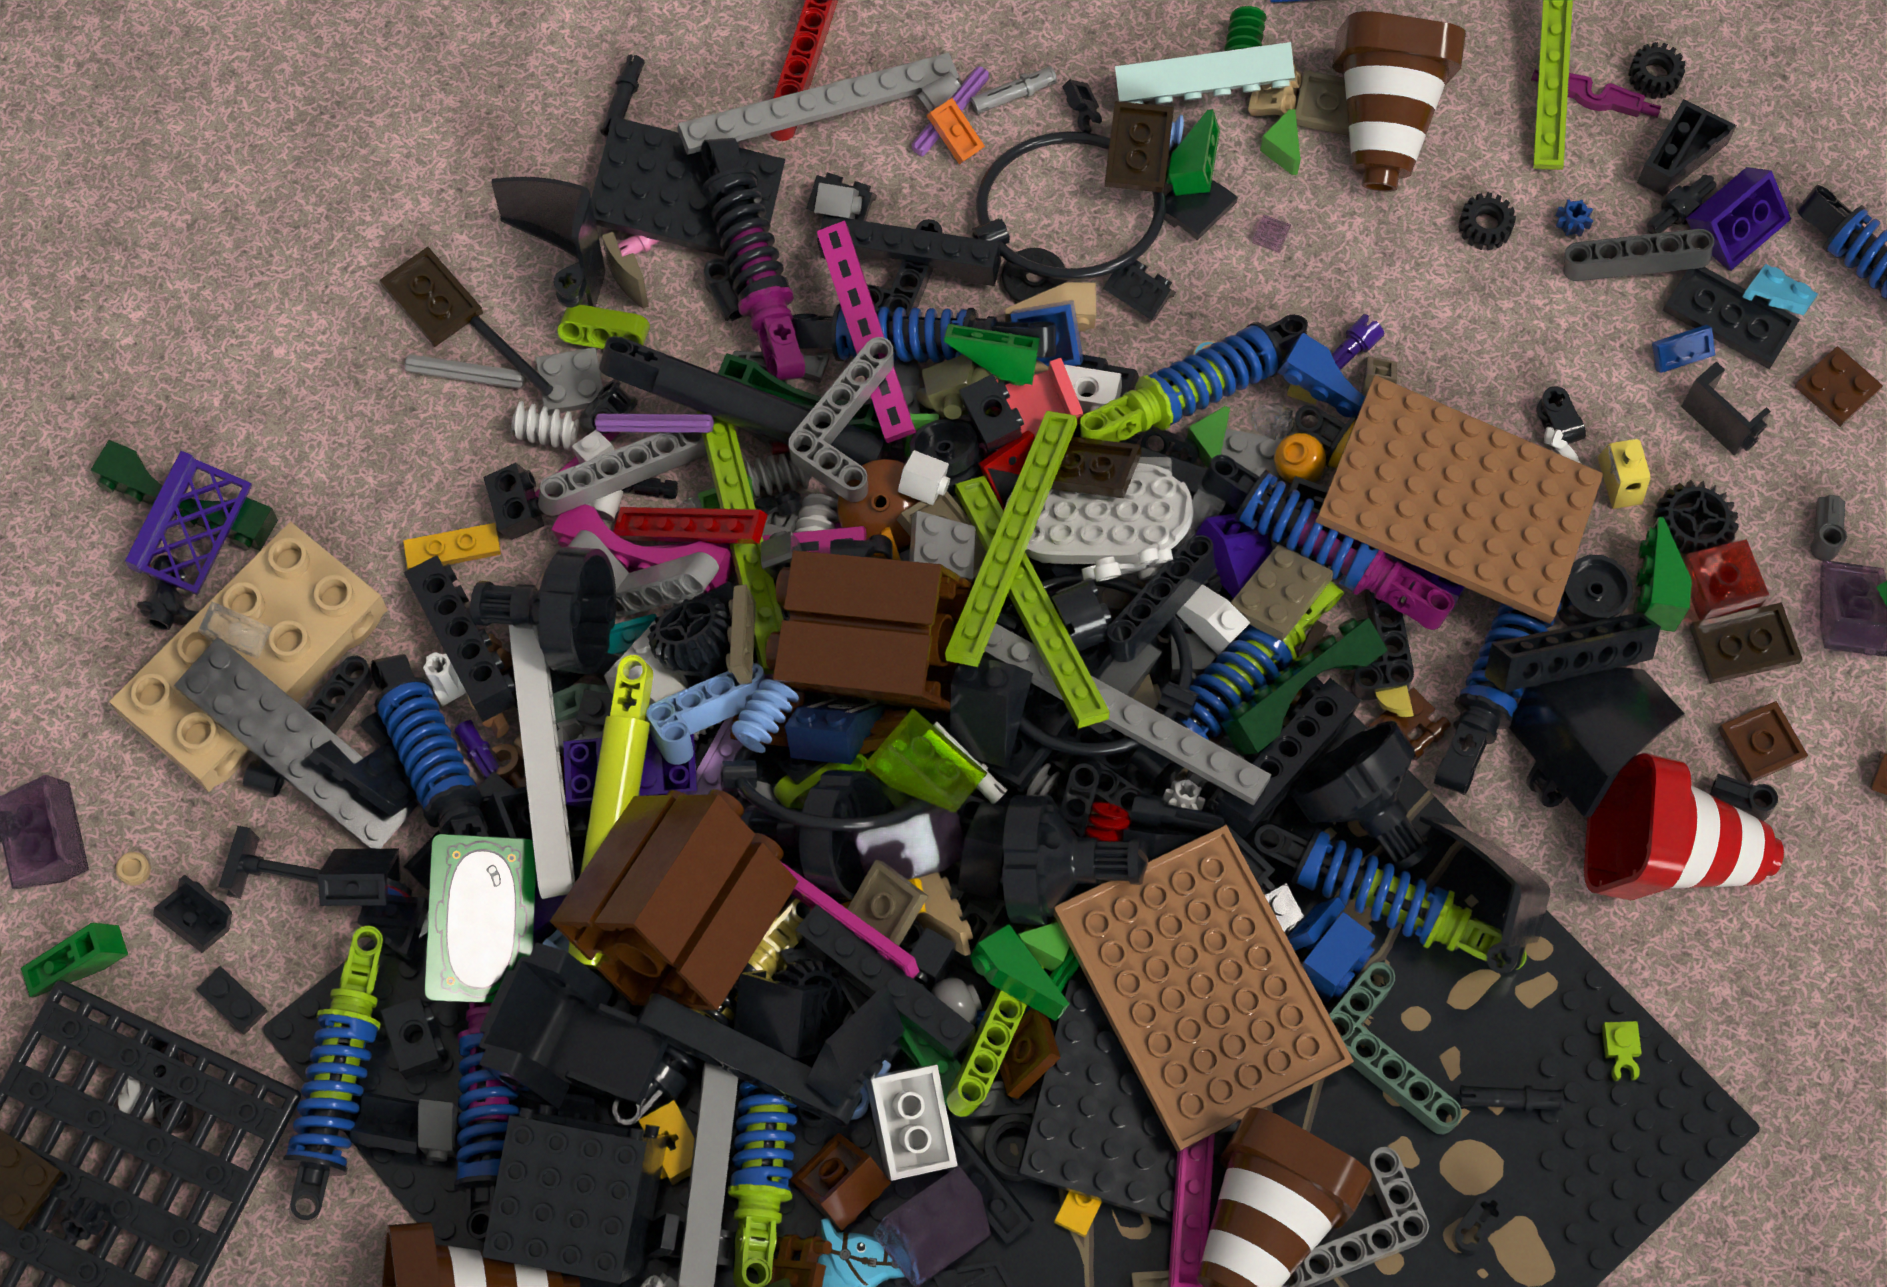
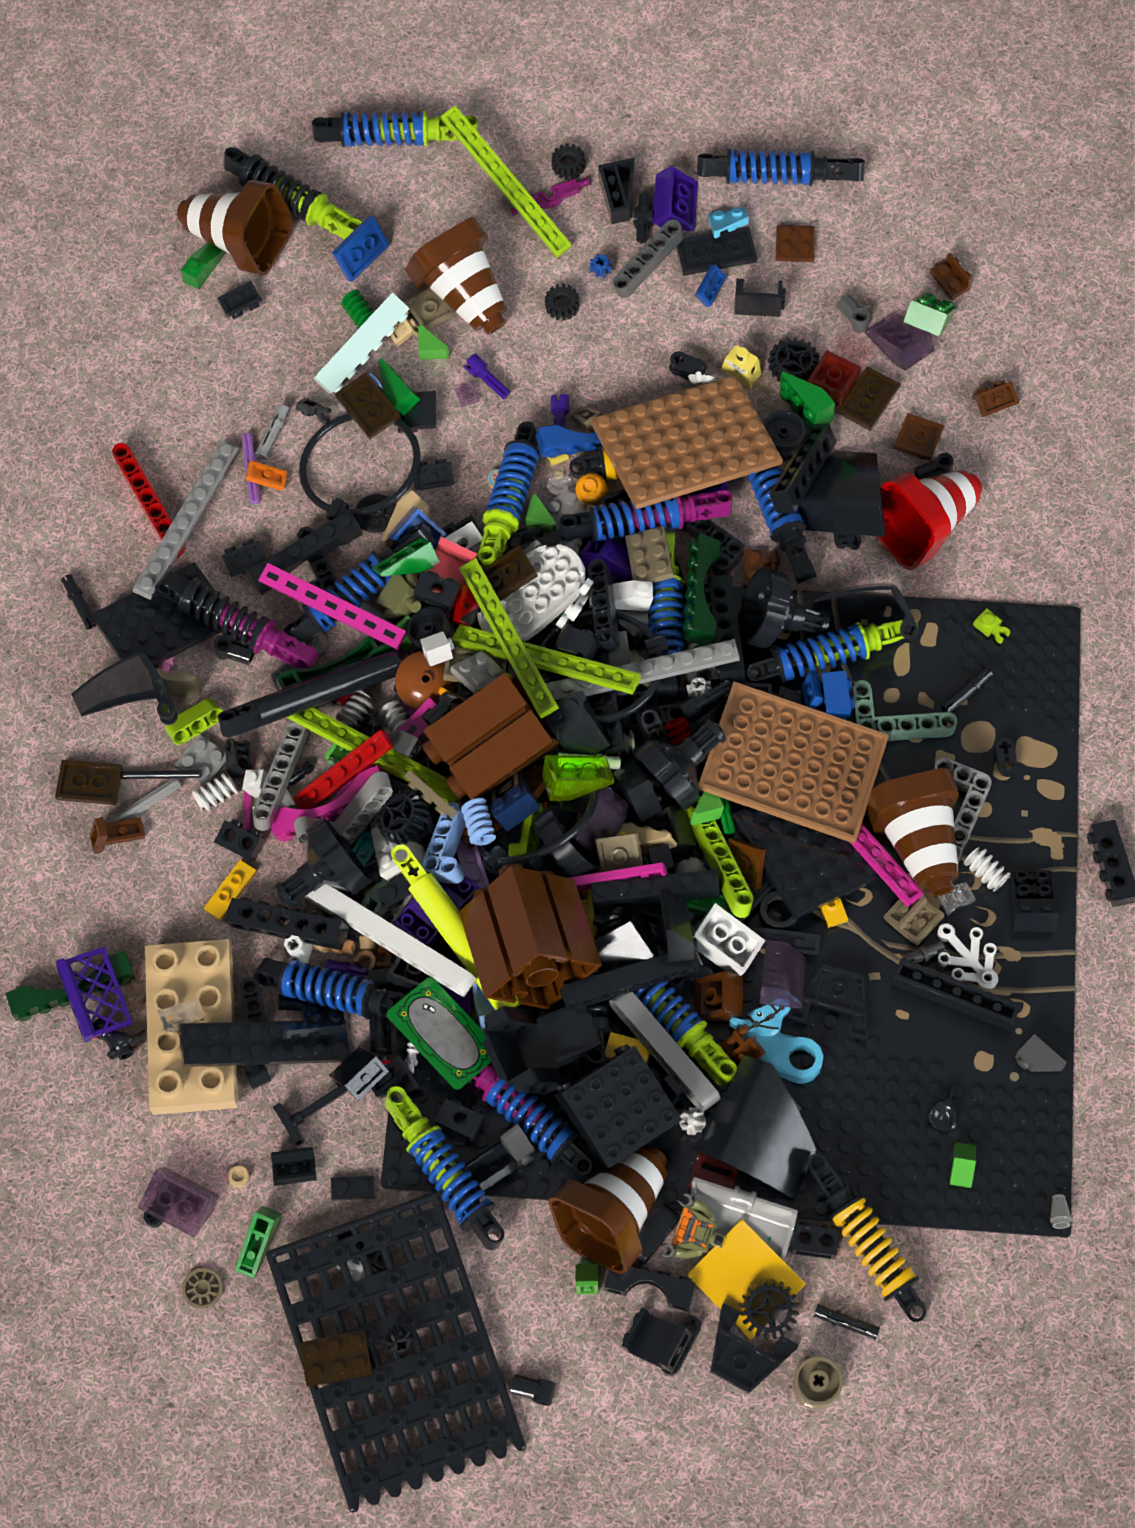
camera: 40 degrees left, 0 degrees up
(399, 374) = (115, 832): none -> reddish brown bracket
(655, 423) = (274, 740): medium lavender axle -> none
(837, 201) = (247, 558): light grey brick -> none
(838, 417) = (364, 657): light grey beam -> none
(939, 91) = (237, 464): light grey cone -> none
(1014, 970) = (707, 830): green slope -> none
(1313, 214) = (478, 368): none -> dark purple piece
(1396, 701) = (745, 561): light yellow tile -> none

